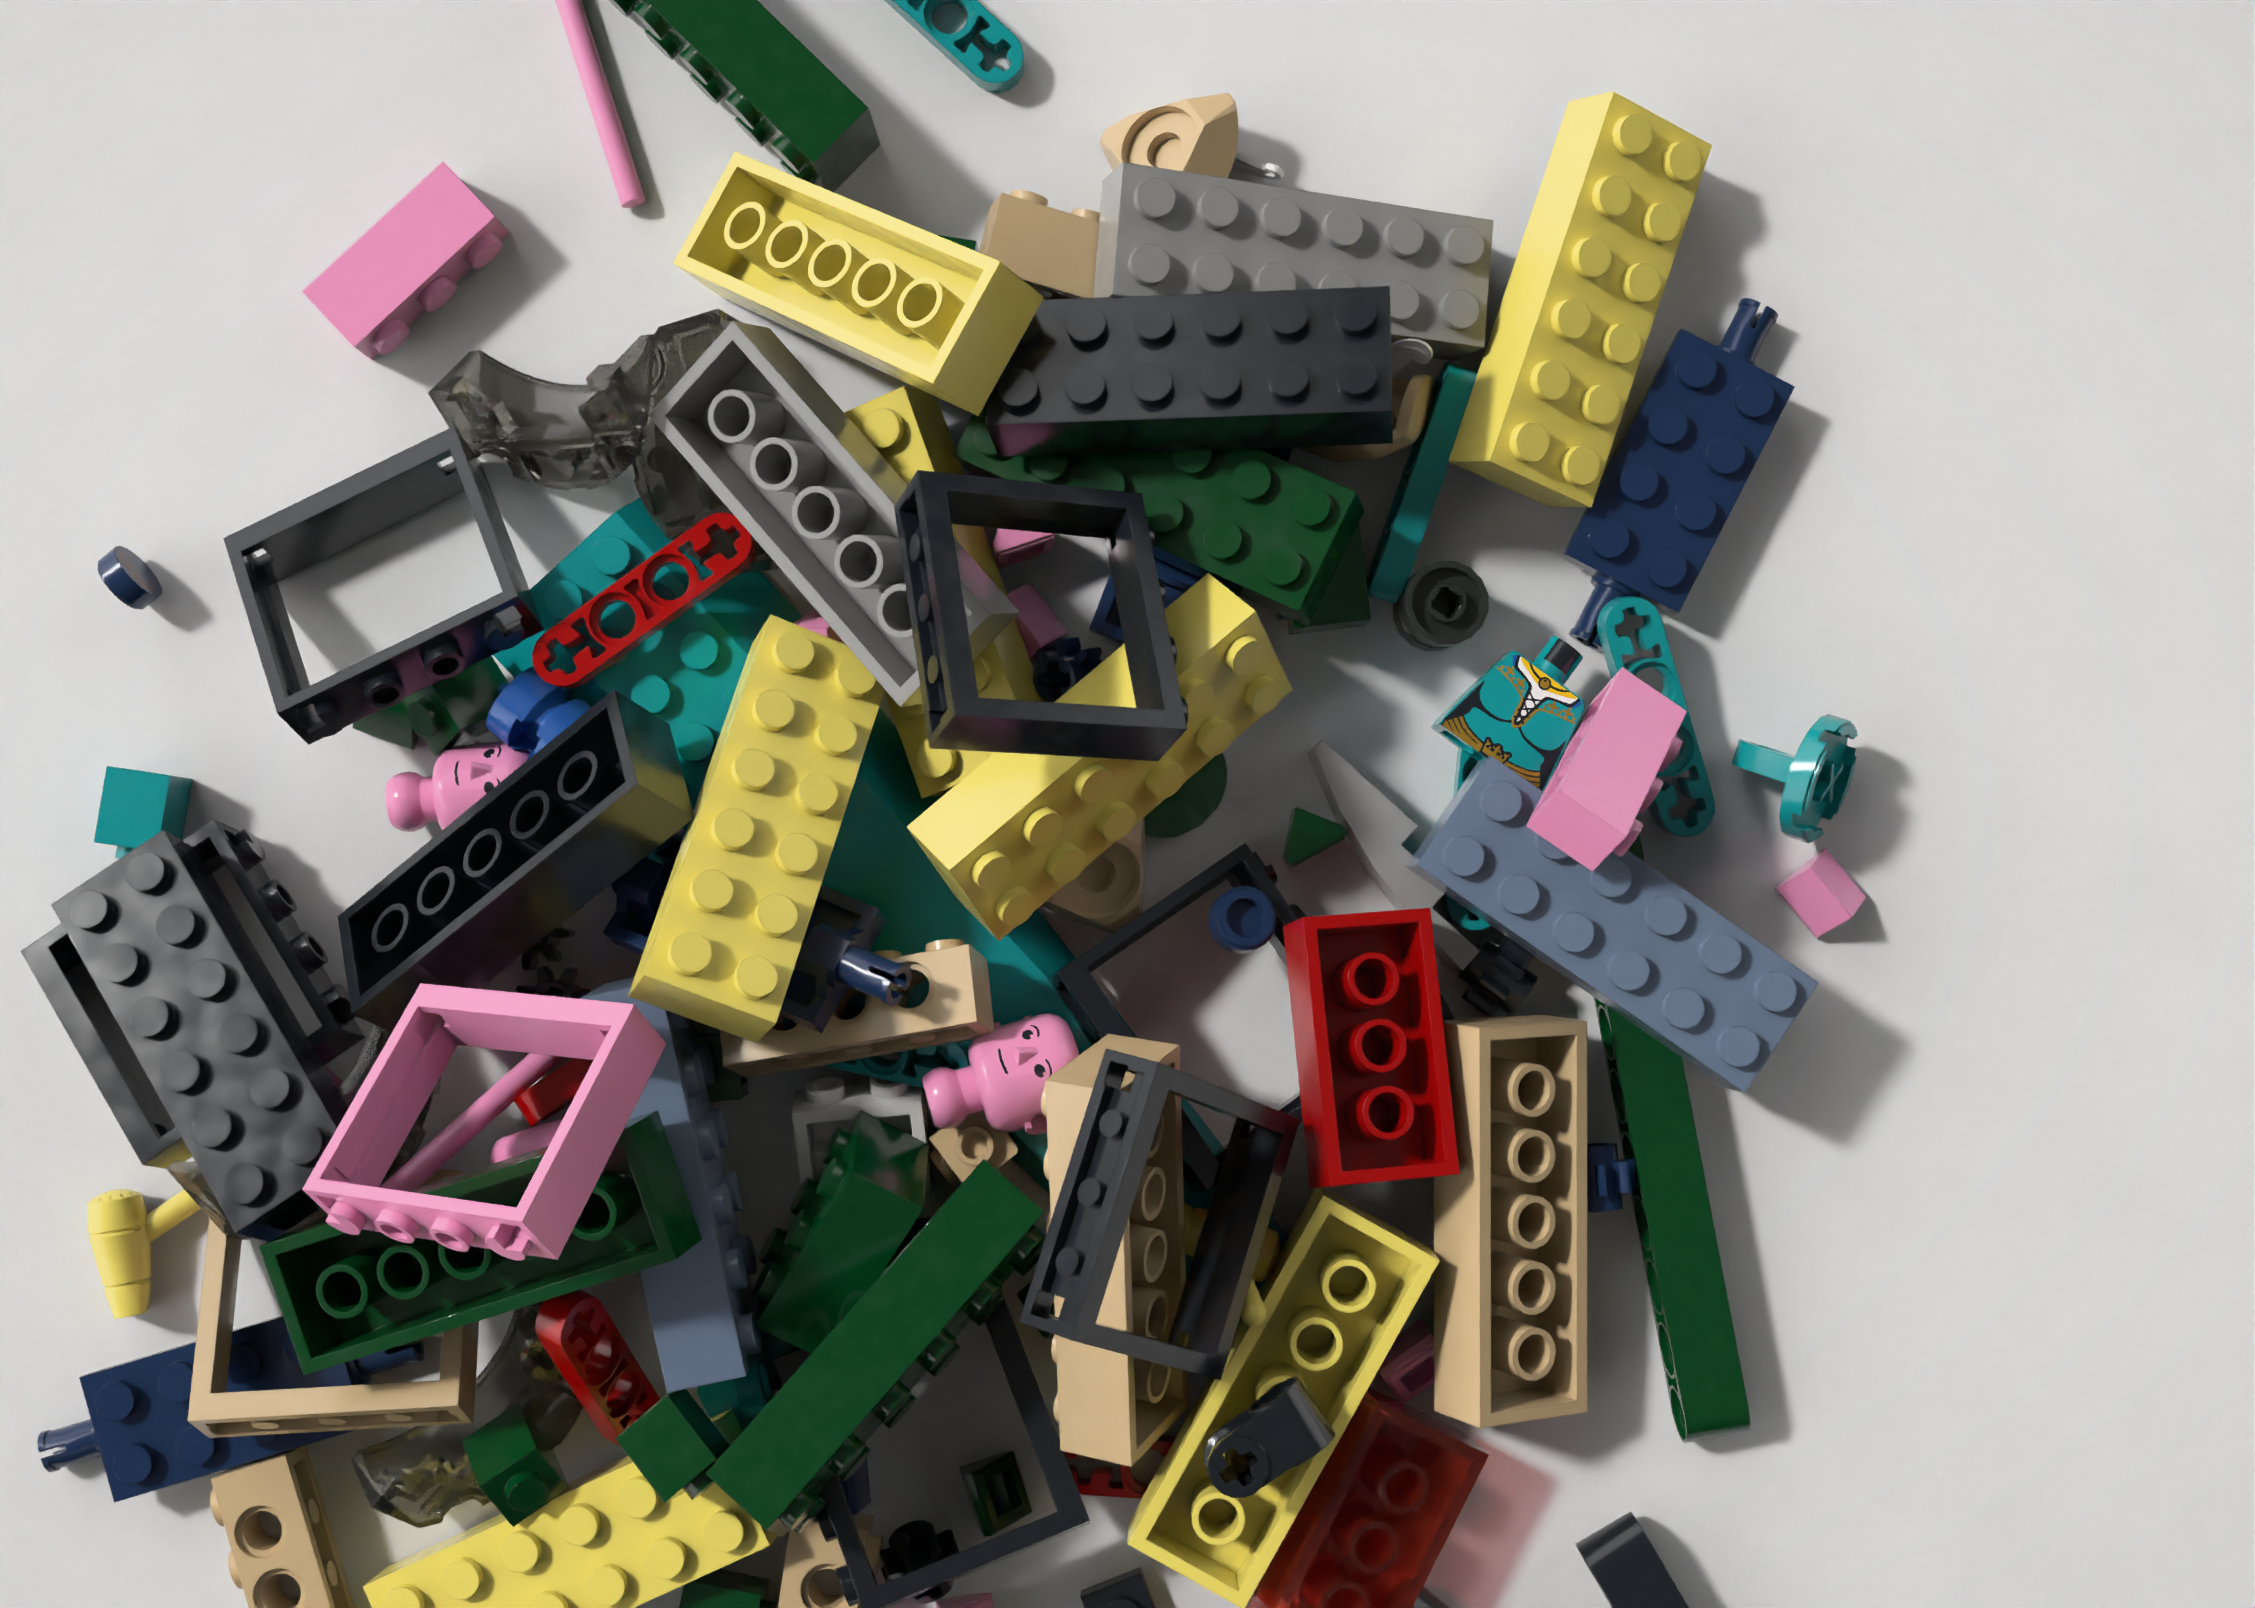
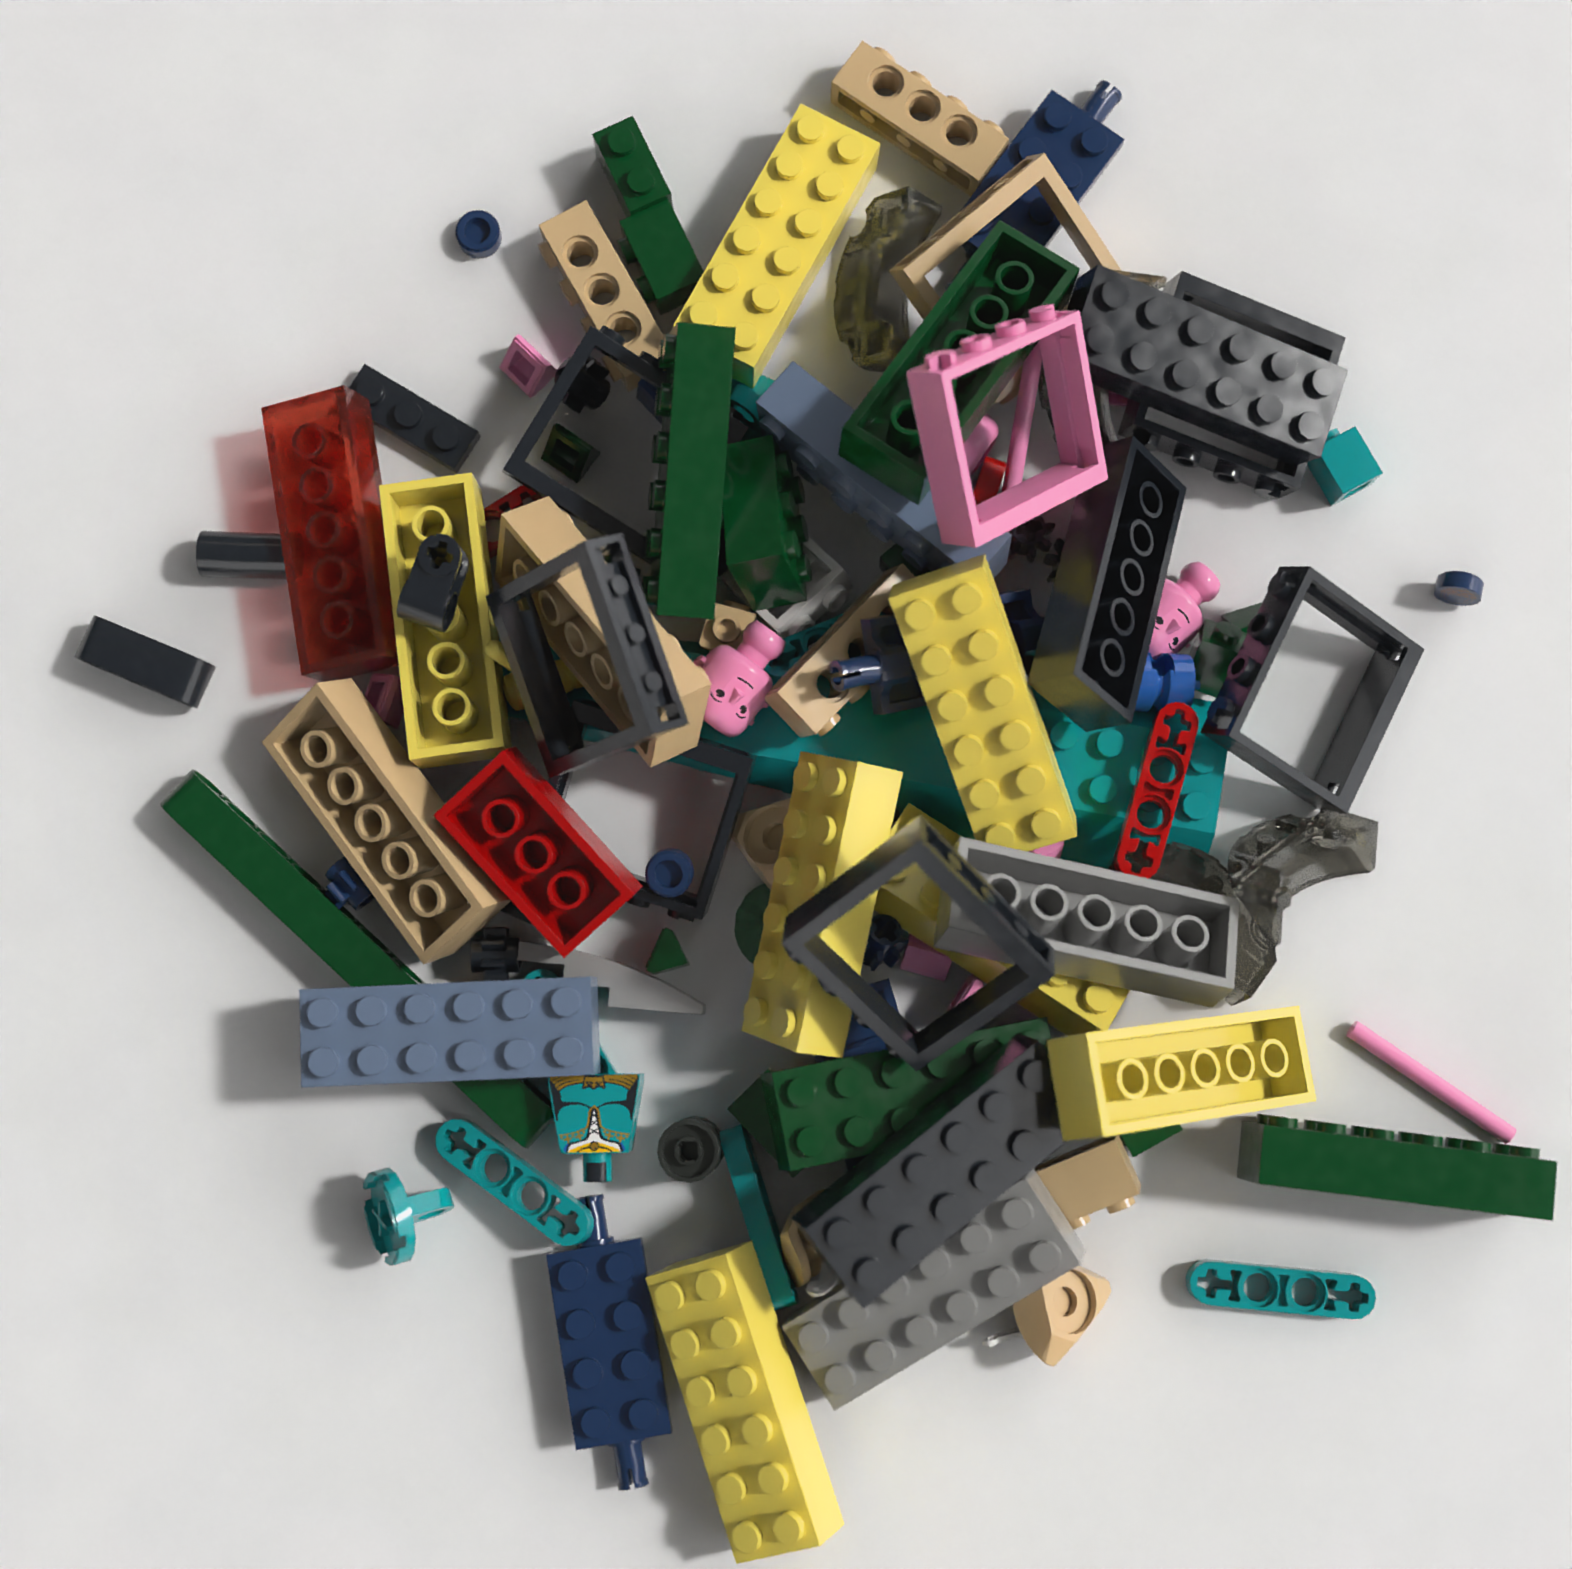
camera: 140 degrees right, 5 degrees down
(122, 1243) = (1160, 226): light yellow piece -> none
(407, 263) = (1451, 889): bright pink brick -> none
(515, 1464) = (848, 266): dark green brick -> none
(607, 1381) = (839, 349): red beam -> none
(674, 1446) = (765, 336): dark green brick -> none
(1609, 771) = (516, 1119): bright pink brick -> none
(1821, 894) = (338, 1152): bright pink slope -> none

